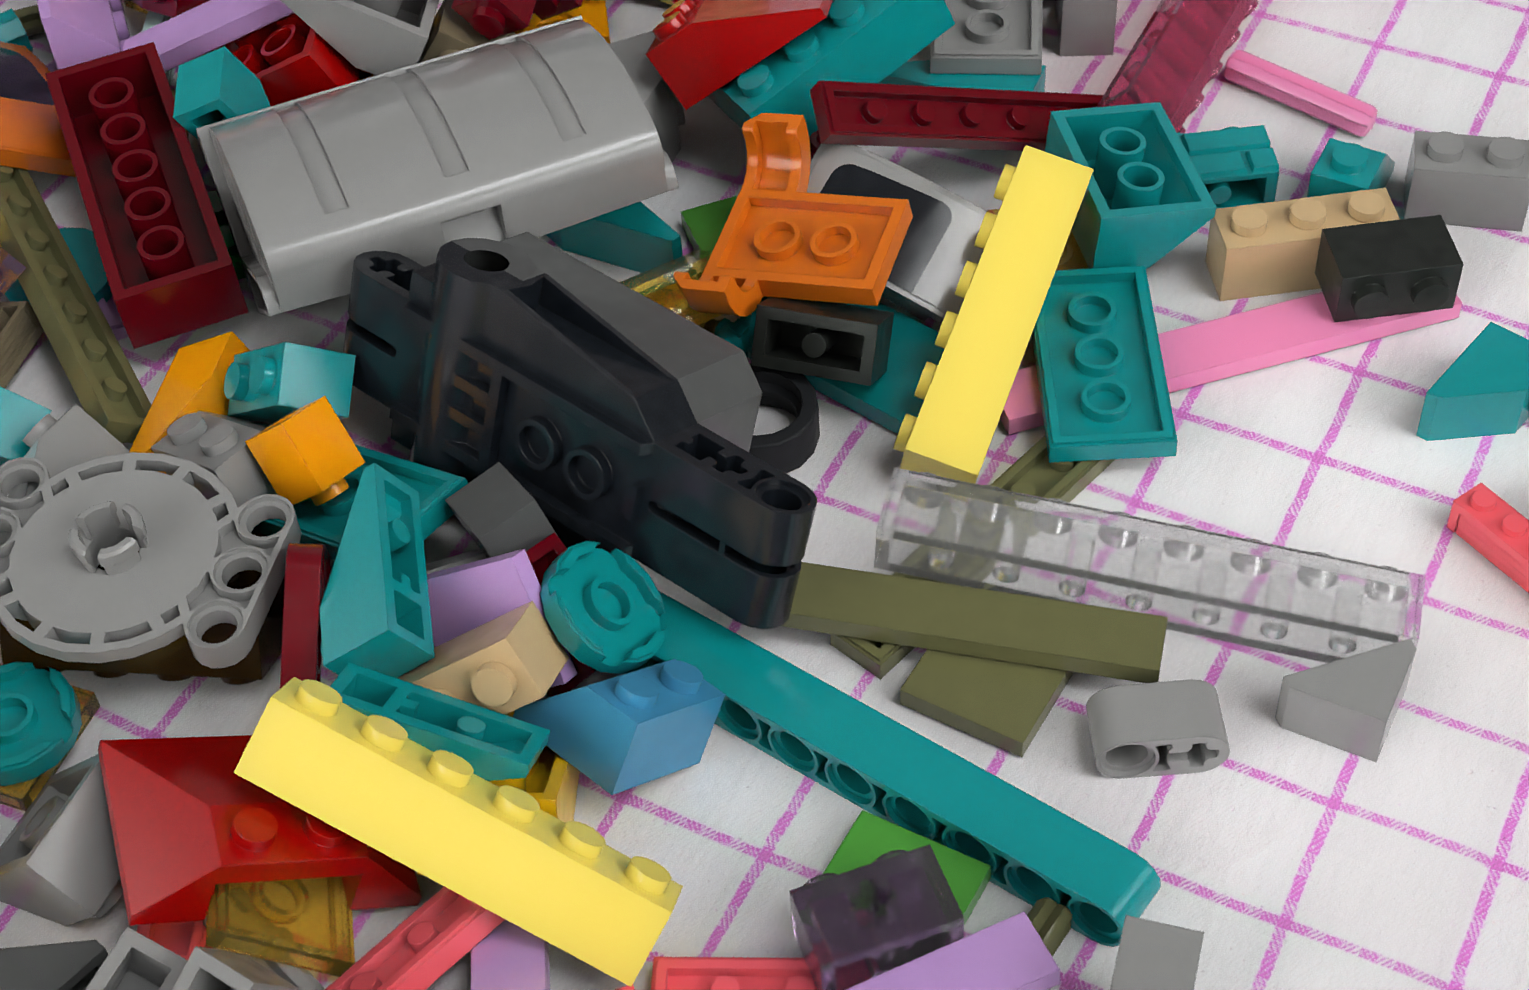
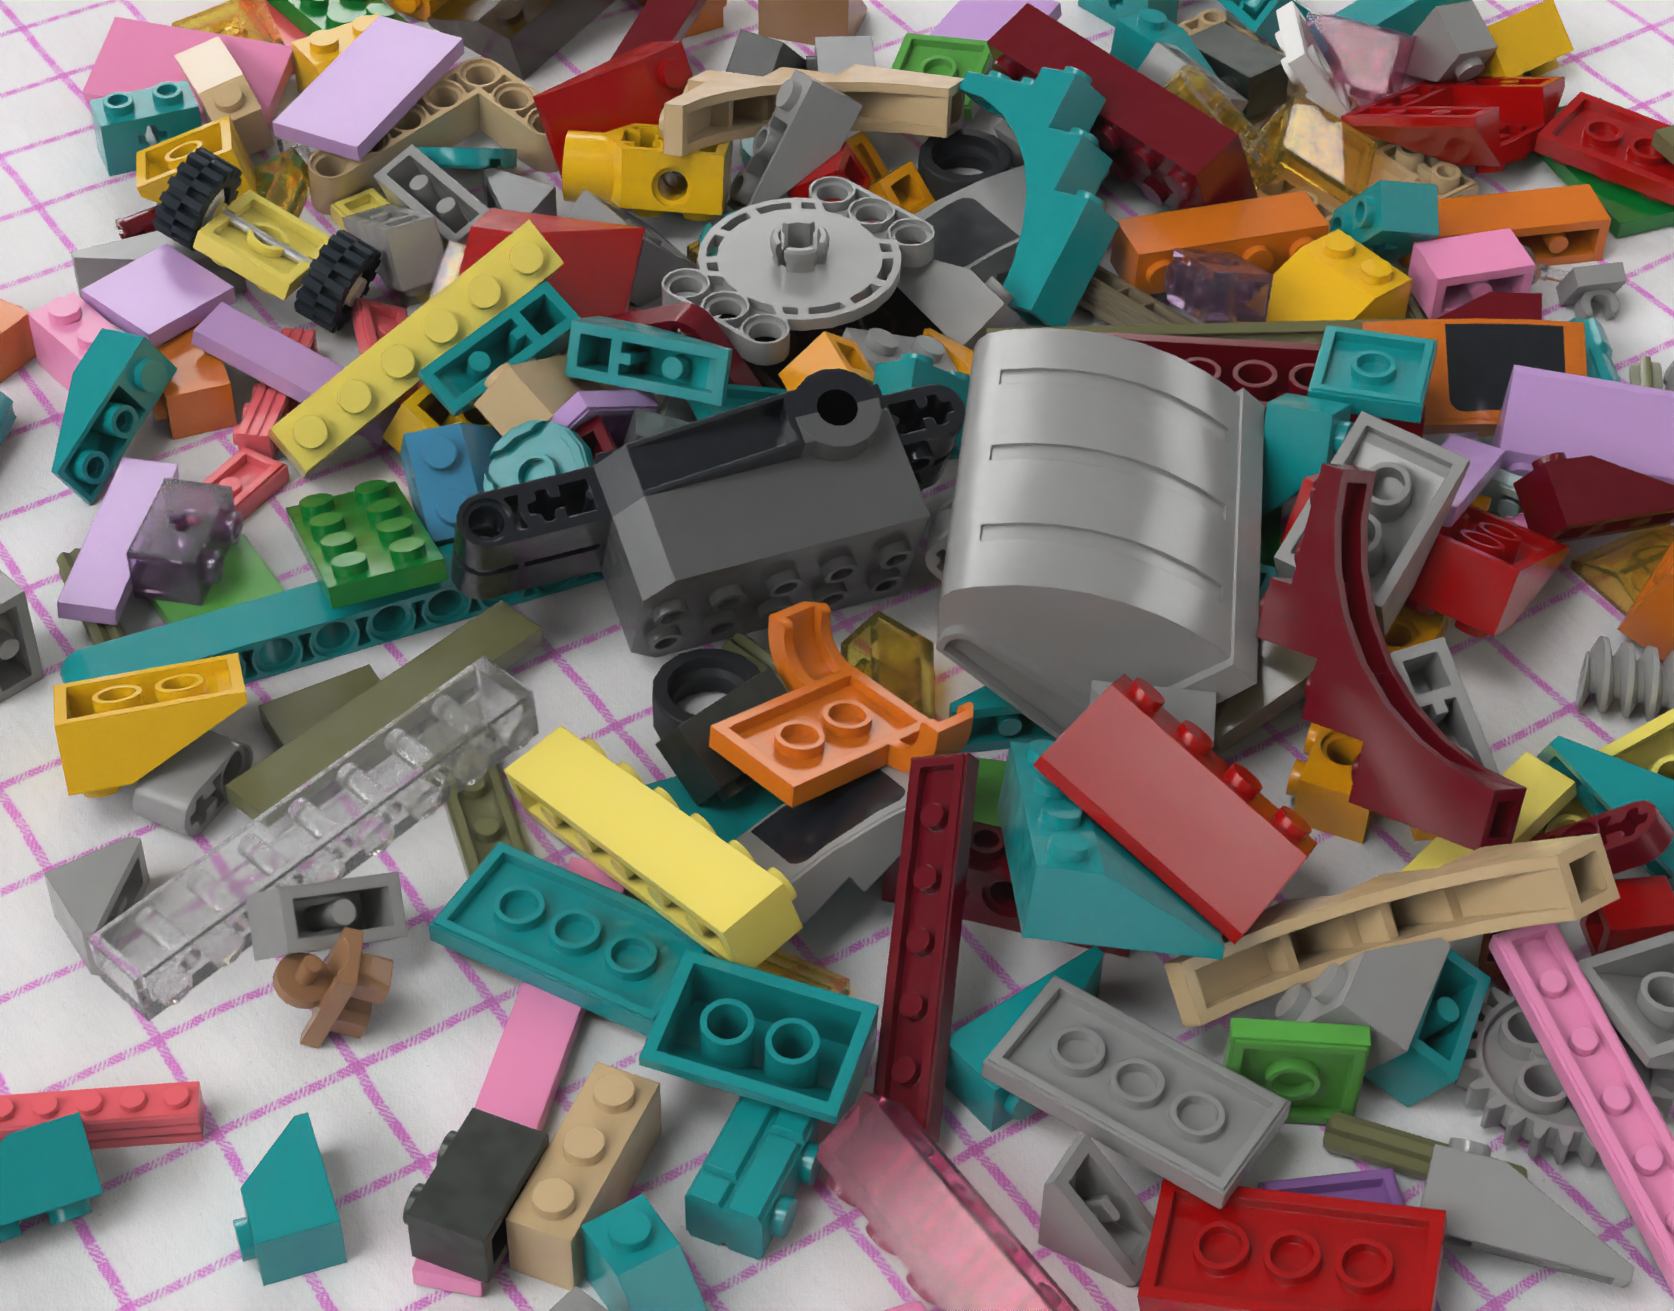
camera: 115 degrees right, 5 degrees down
(109, 82) = (1374, 372): none -> teal tile
(760, 759) = (365, 543): none -> green plate
(1150, 755) = (133, 721): none -> yellow slope
(1244, 490) = (314, 914): none -> light grey brick
(1301, 450) = (335, 989): none -> medium nougat hips

